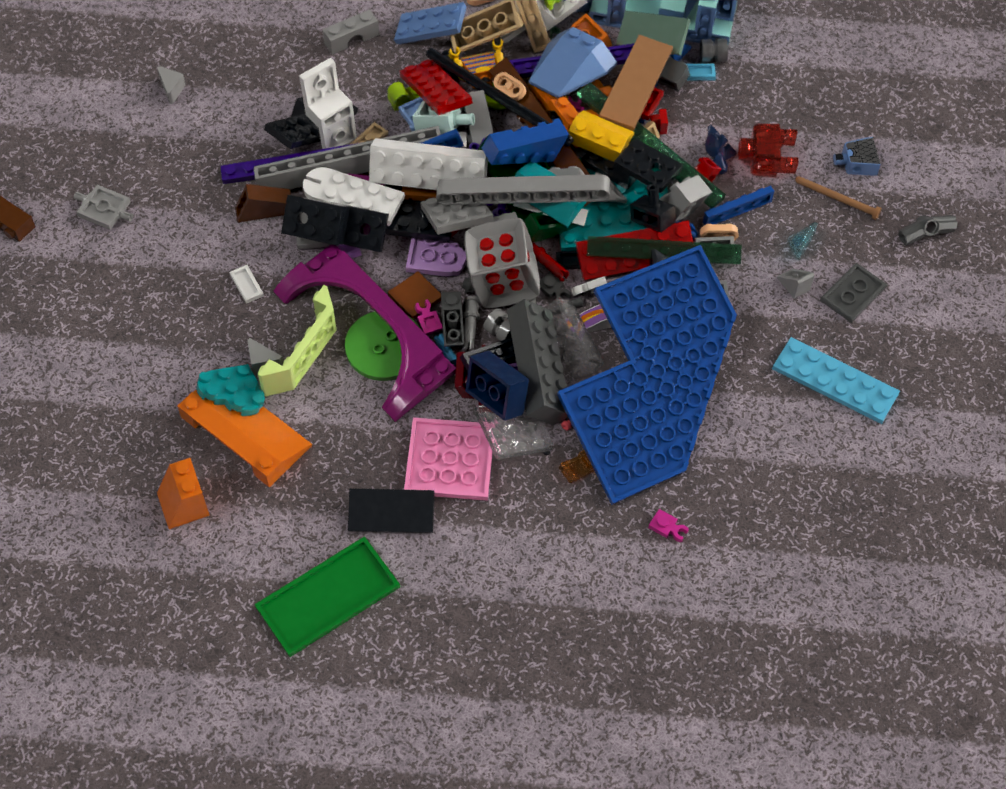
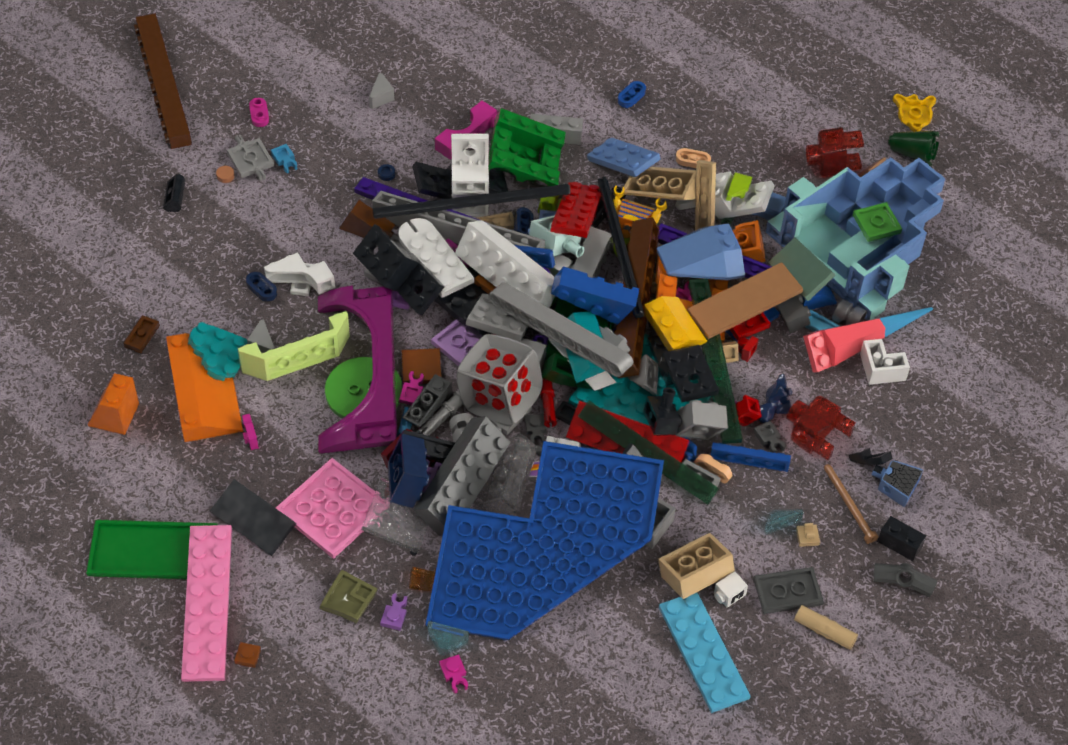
camera: 35 degrees right, 5 degrees down
(62, 278) = (174, 193): none -> black brick
(72, 161) = (259, 112): none -> dark pink plate
(92, 234) = (225, 174): none -> nougat tile
(133, 187) = (284, 156): none -> dark azure plate
(146, 418) = (141, 334): none -> reddish brown plate
(217, 313) = (264, 286): none -> dark blue plate
(236, 150) = (386, 172): none -> dark blue tile
(237, 279) = (293, 270): none -> white arch
(272, 91) = (481, 117): none -> dark pink arch
(324, 442) = (250, 435): none -> dark pink plate
(341, 48) = (517, 148): none -> green piece
(343, 130) = (471, 201): none -> black axle
(393, 123) = (523, 220): none -> dark blue plate
(418, 608) = (207, 603): none -> bright pink plate
(490, 627) = (247, 654): none -> dark orange plate
(511, 87) = (633, 242): light nougat plate -> none
(530, 523) = (348, 597): none -> olive plate
(578, 512) = (394, 615): none -> medium lavender plate
(637, 502) = (447, 638): none -> clear light blue slope
(726, 76) = (839, 343): none -> coral plate
(735, 181) = (769, 435): none -> dark grey plate
(770, 76) = (882, 366): none -> white brick
(778, 316) = (696, 565): none -> tan brick
(796, 281) = (743, 550): light grey slope -> none
(815, 319) = (730, 589): none -> white brick
(826, 152) = (866, 458): none -> black slope
(830, 241) = (808, 535): none -> tan tile
(900, 199) = (901, 538): none -> black piece
(906, 302) = (824, 626): none -> tan axle

